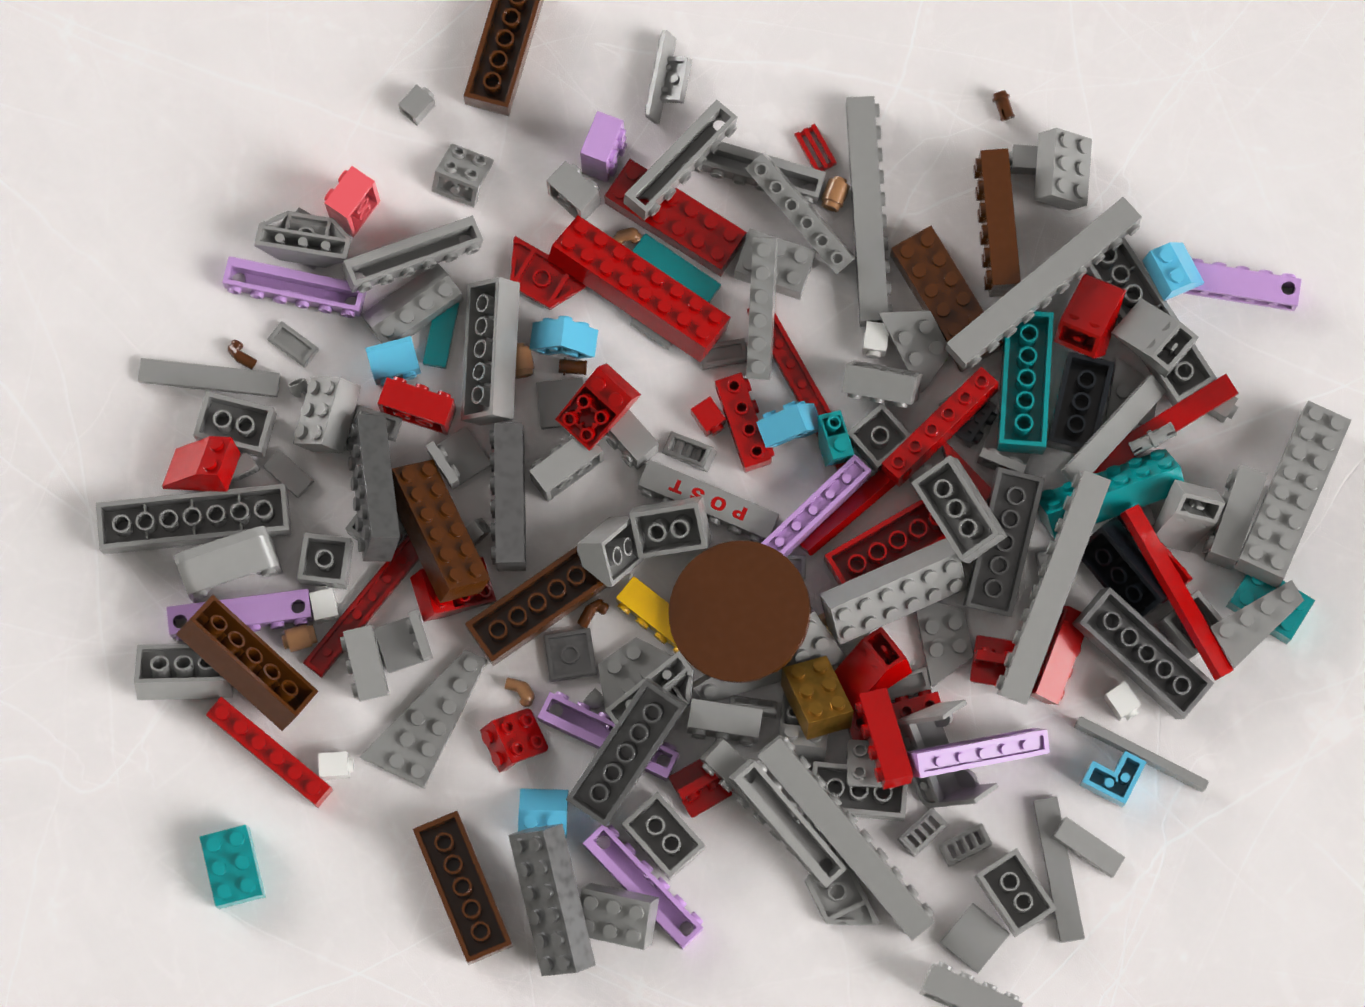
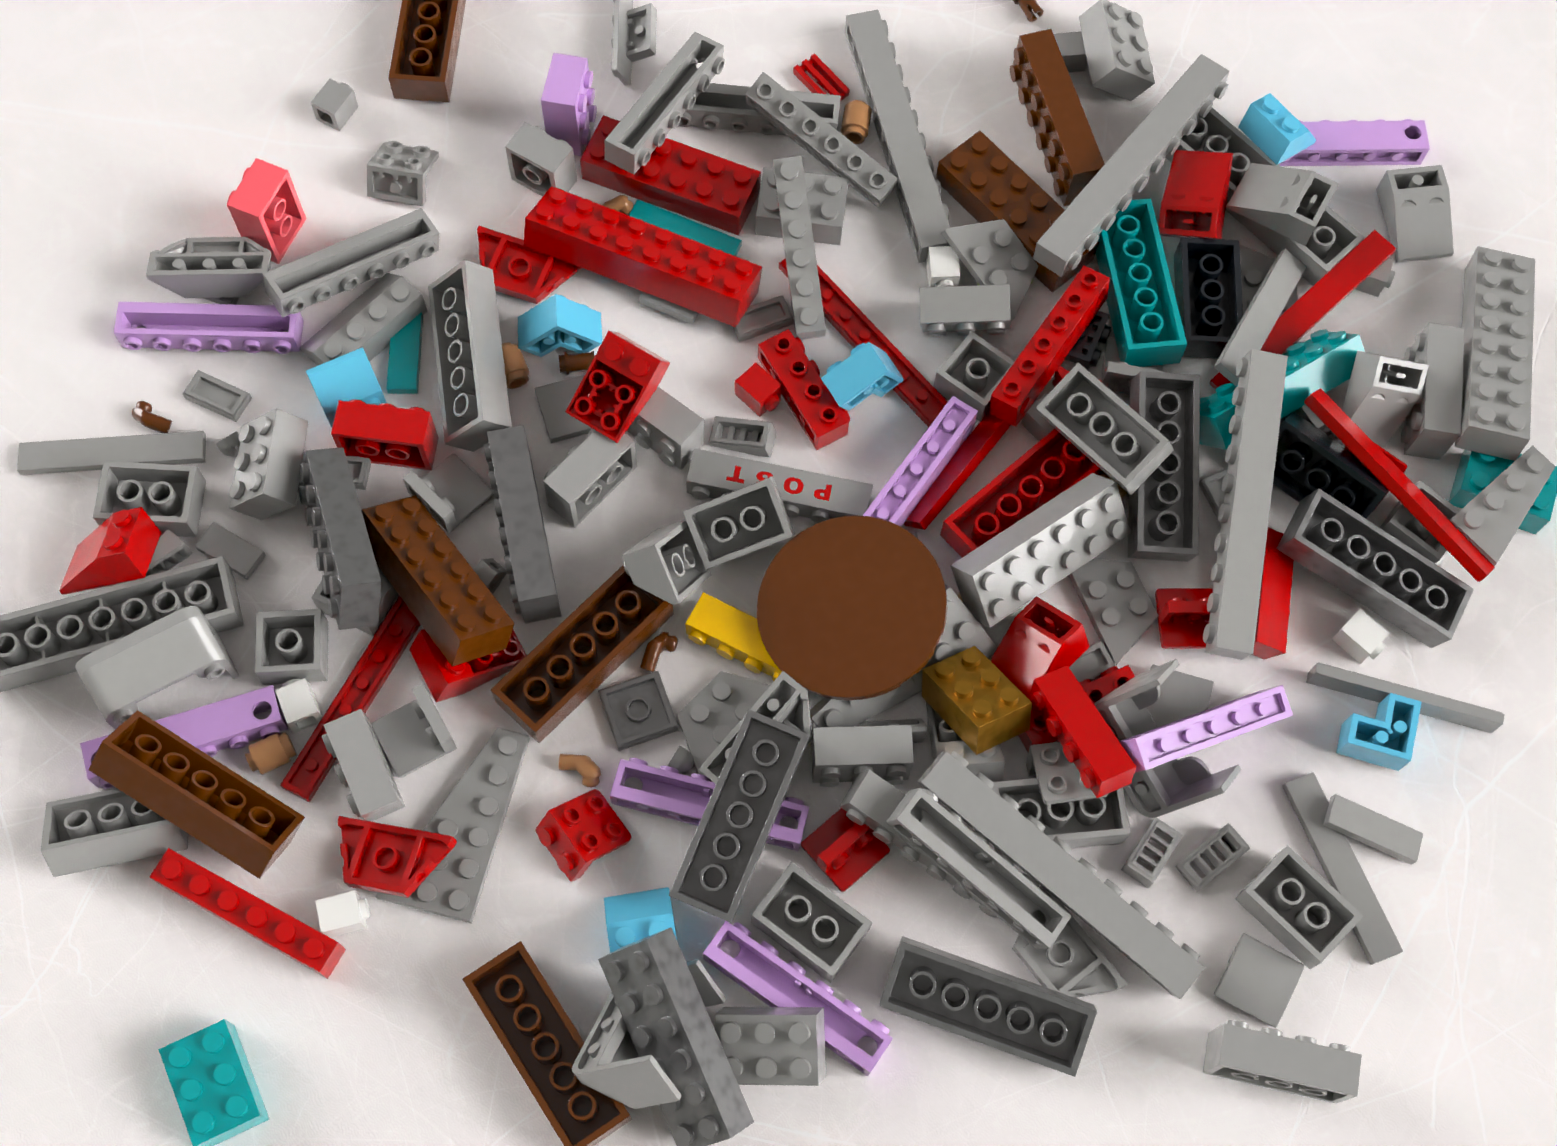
camera: 15 degrees left, 10 degrees down
(373, 730) = (389, 856): none -> red wing
(505, 903) = (612, 1064): none -> light grey windscreen
(774, 918) = (988, 1006): none -> flat silver brick
(834, 439) = (922, 384): teal slope -> none
(971, 721) = (1180, 697): none -> light grey tile
(1152, 439) = (1309, 318): light grey pin -> none
(1272, 360) = (1417, 212): none -> light grey slope

